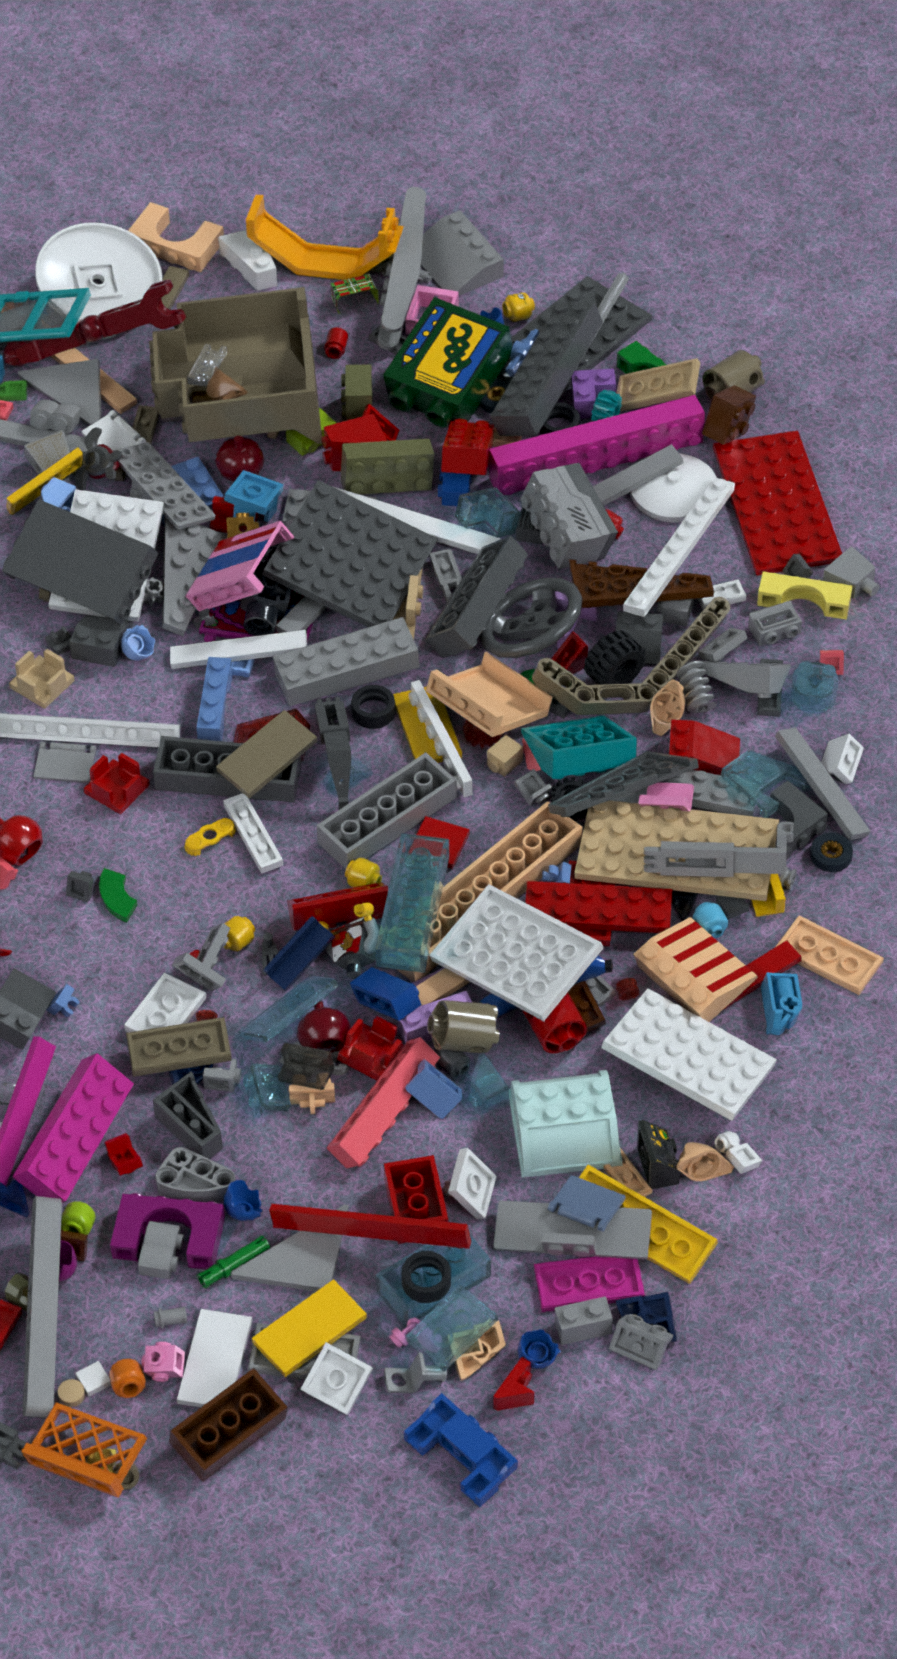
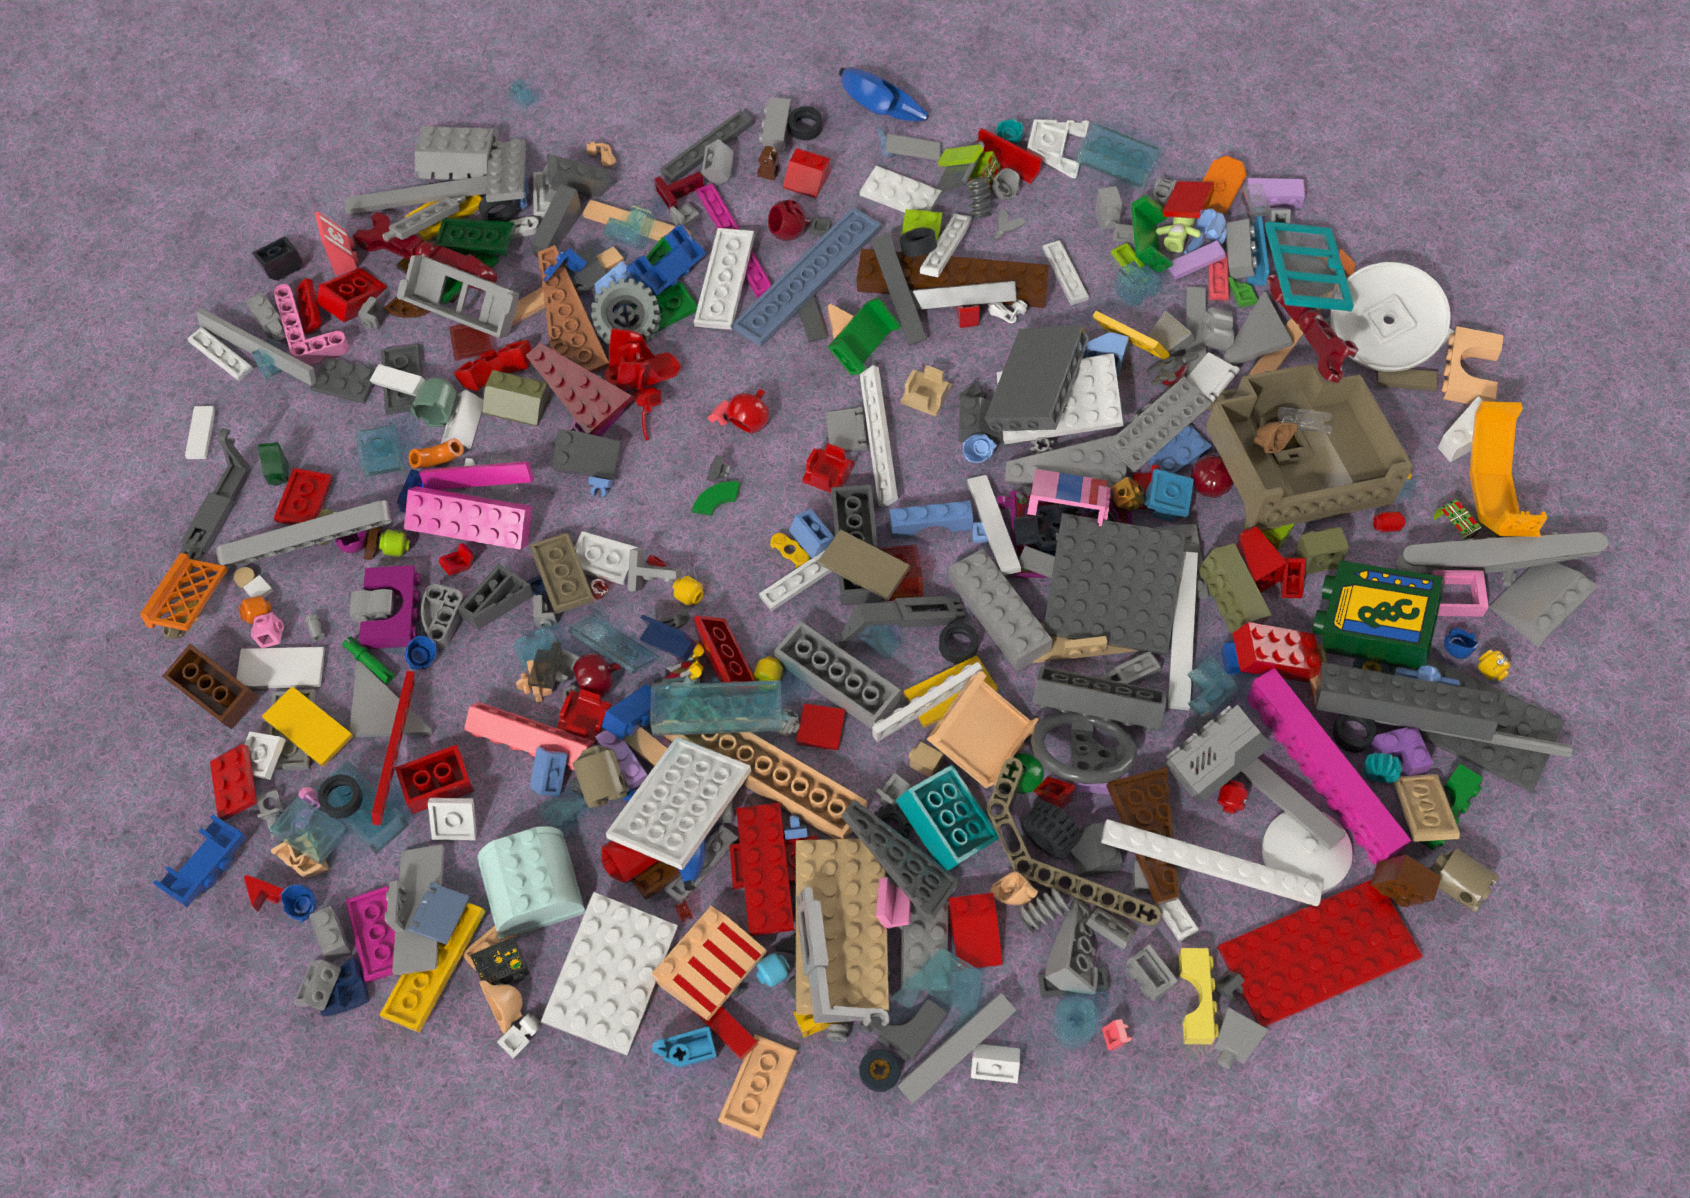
camera: 80 degrees right, 10 degrees up
(201, 806) = (811, 533): none -> medium blue brick
(364, 1411) = (233, 782): none -> red plate

